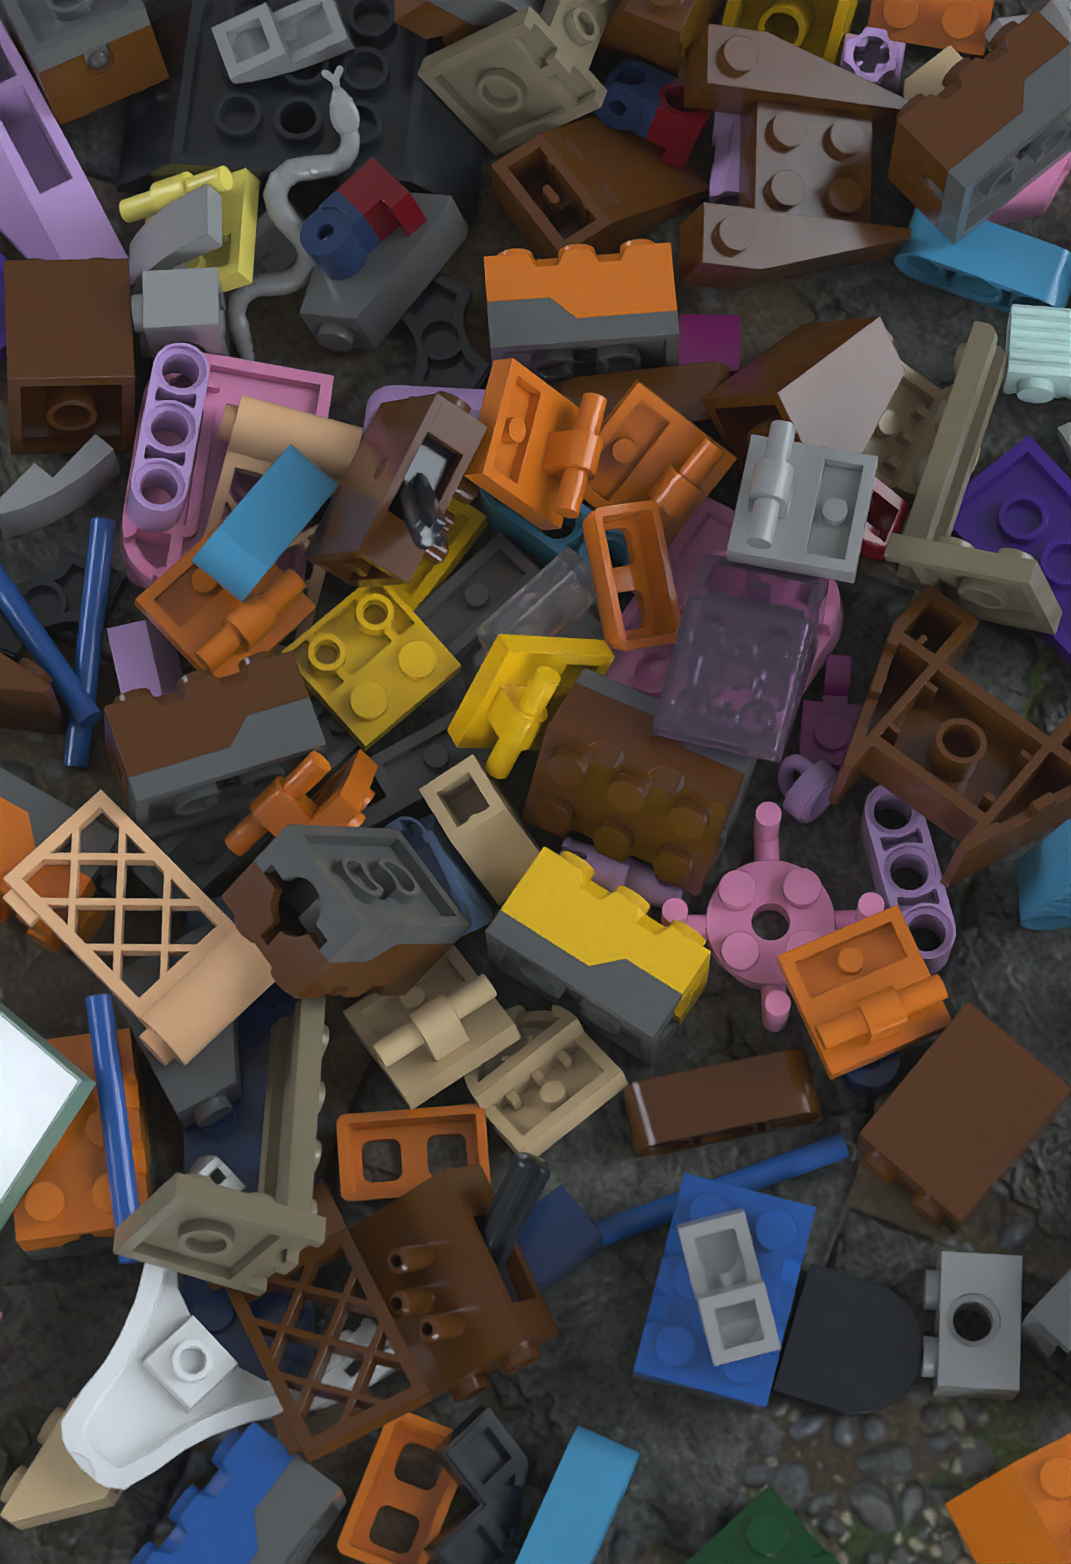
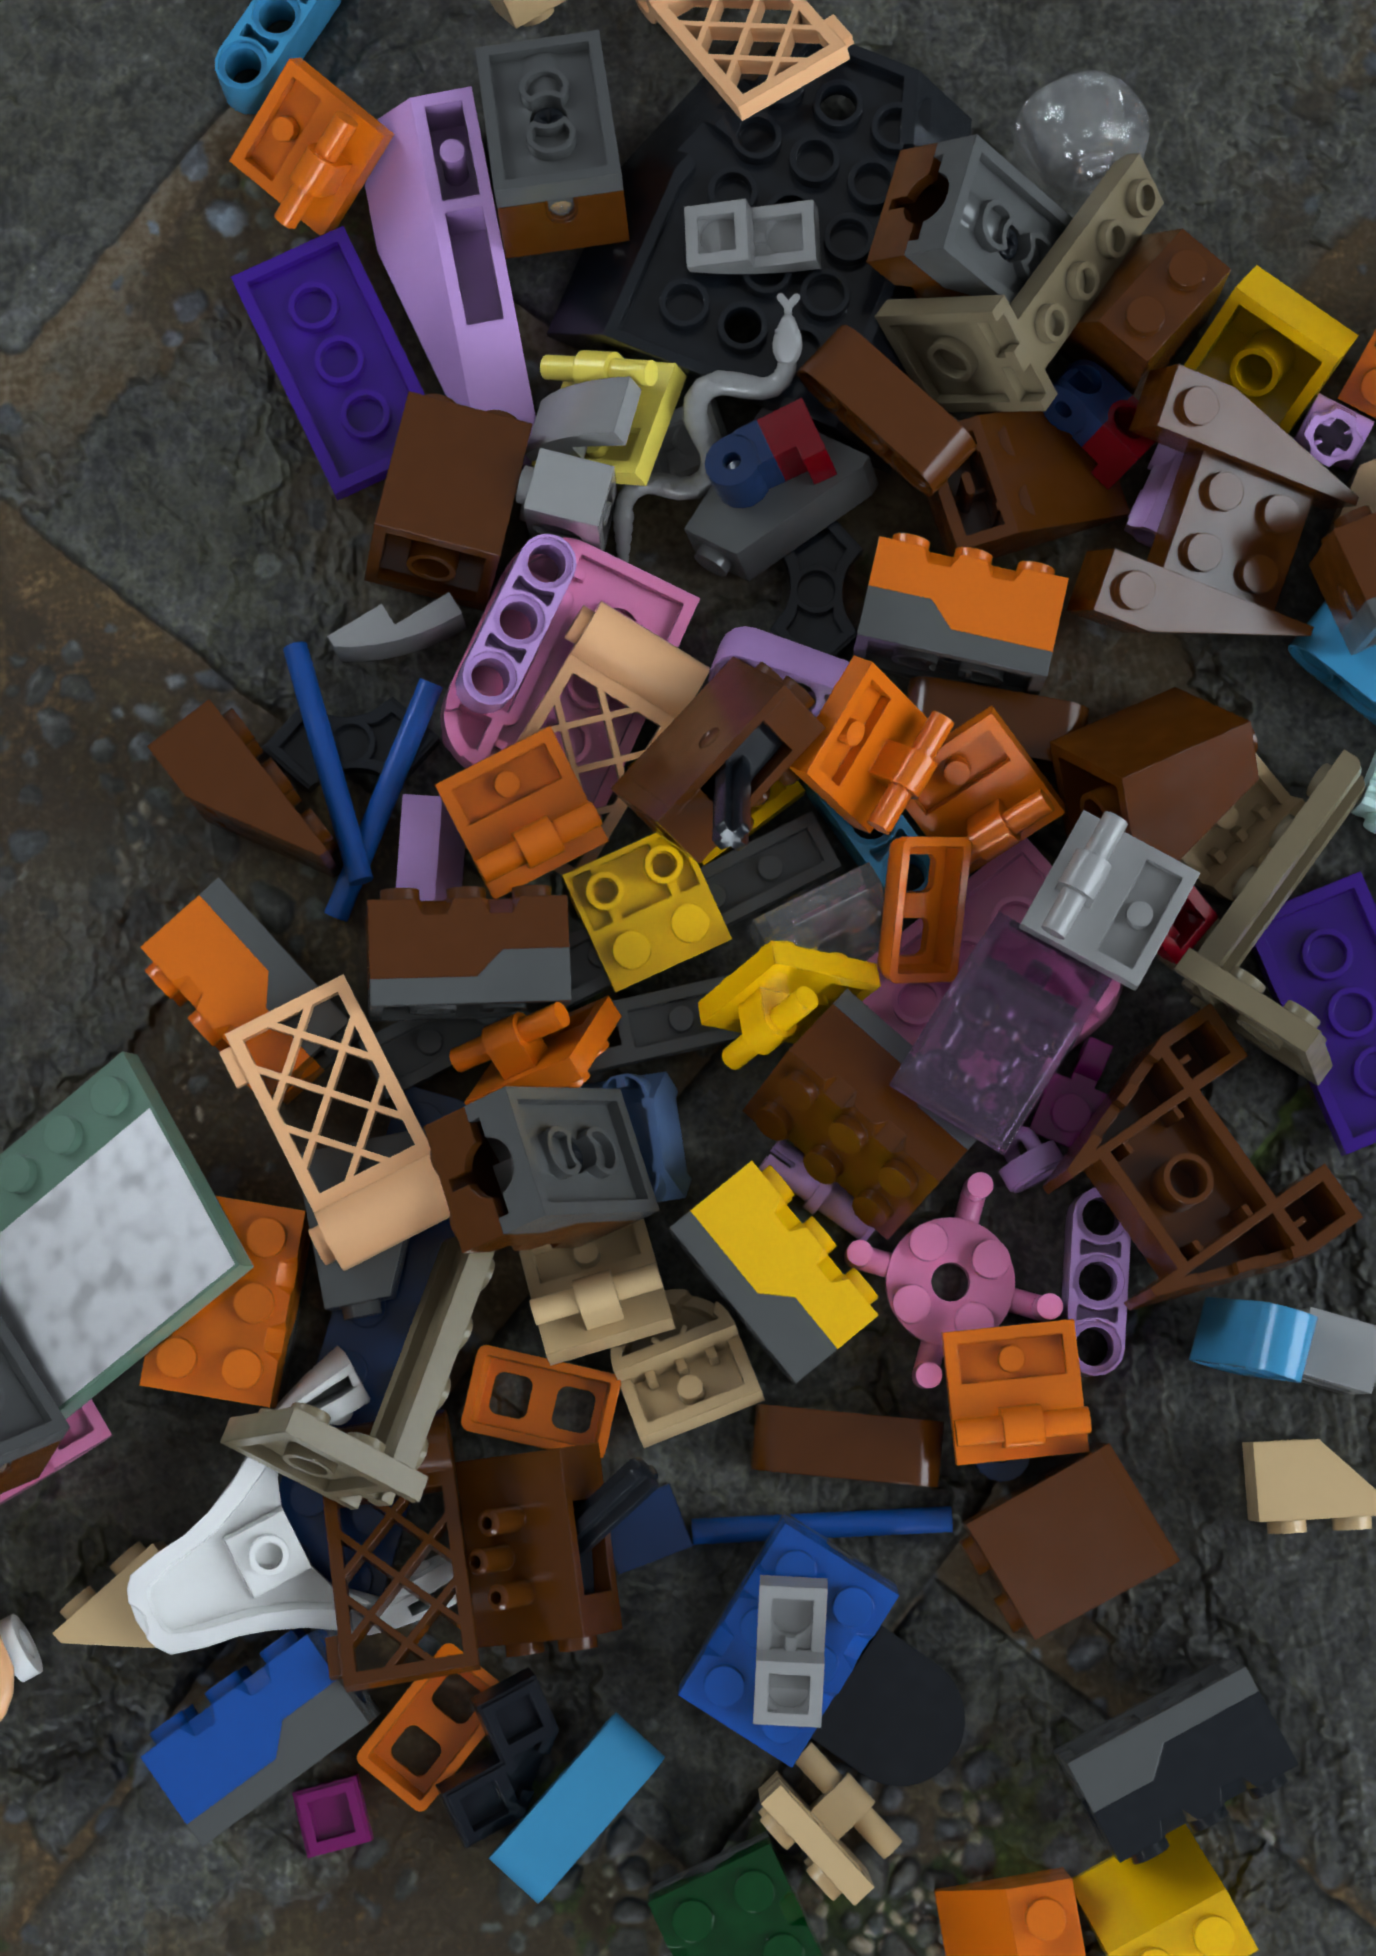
camera: 15 degrees right, 10 degrees up
(112, 1109) = (263, 1296): blue bar -> none
(265, 523) = (582, 749): dark azure beam -> none
(454, 147) = (886, 410): none -> reddish brown beam
(482, 825) = (706, 1109): tan slope -> none
(710, 339) = (1079, 675): magenta tile -> none
(815, 1467) = (824, 1822): none -> tan plate
(994, 1290) = (1020, 1777): light grey brick -> none

